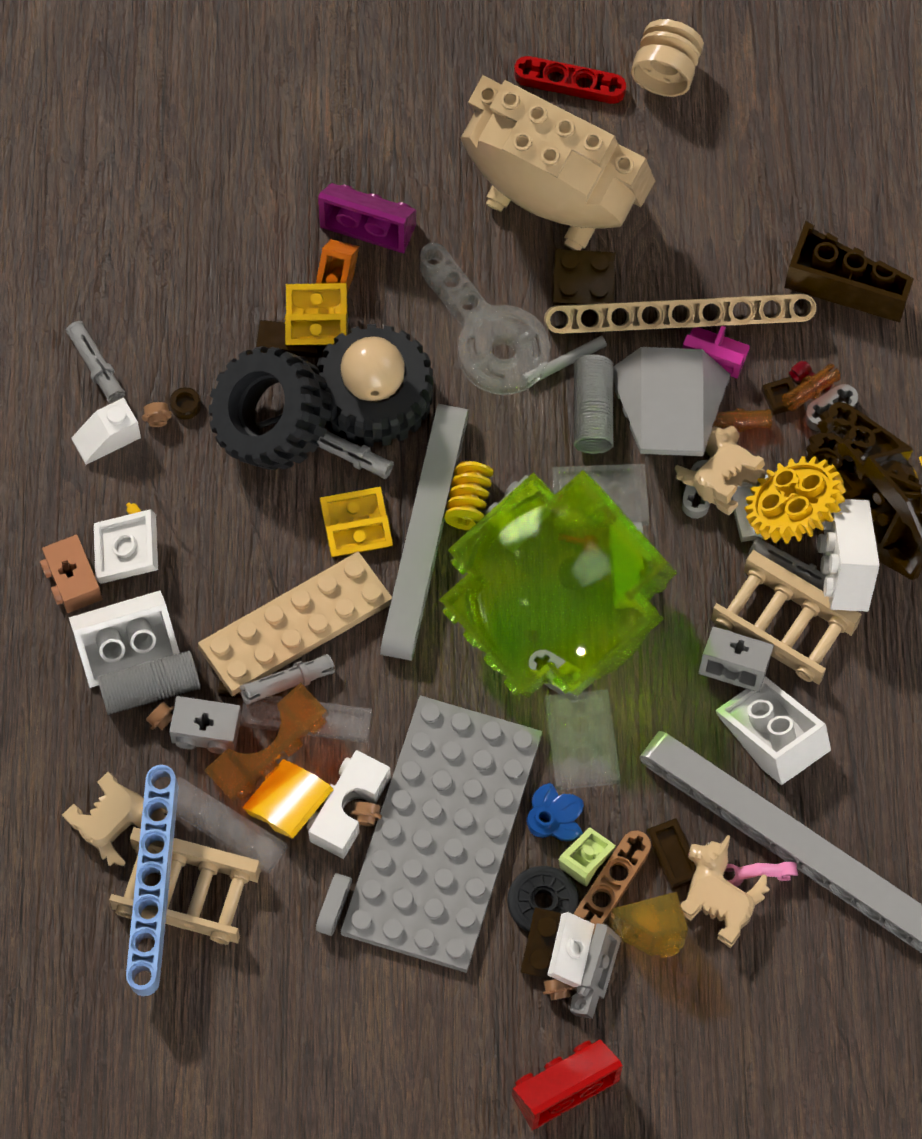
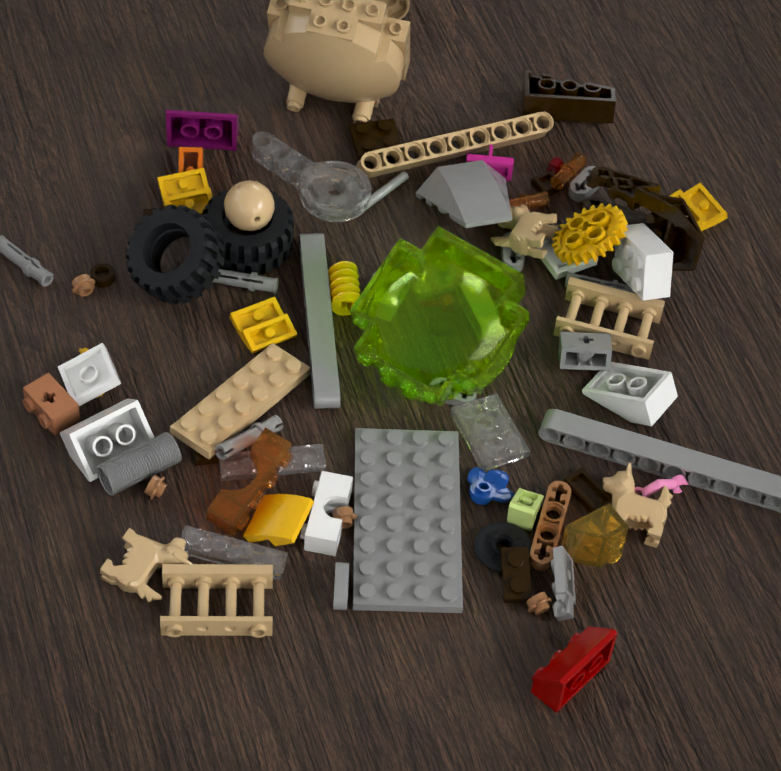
camera: 20 degrees left, 15 degrees down
(106, 431) = (48, 303): white slope -> none
(152, 895) = (193, 604): light blue beam -> none
(192, 715) = (193, 483): light grey brick -> none
(571, 949) = (540, 569): white plate -> none
(593, 404) = (413, 210): light grey piece -> none

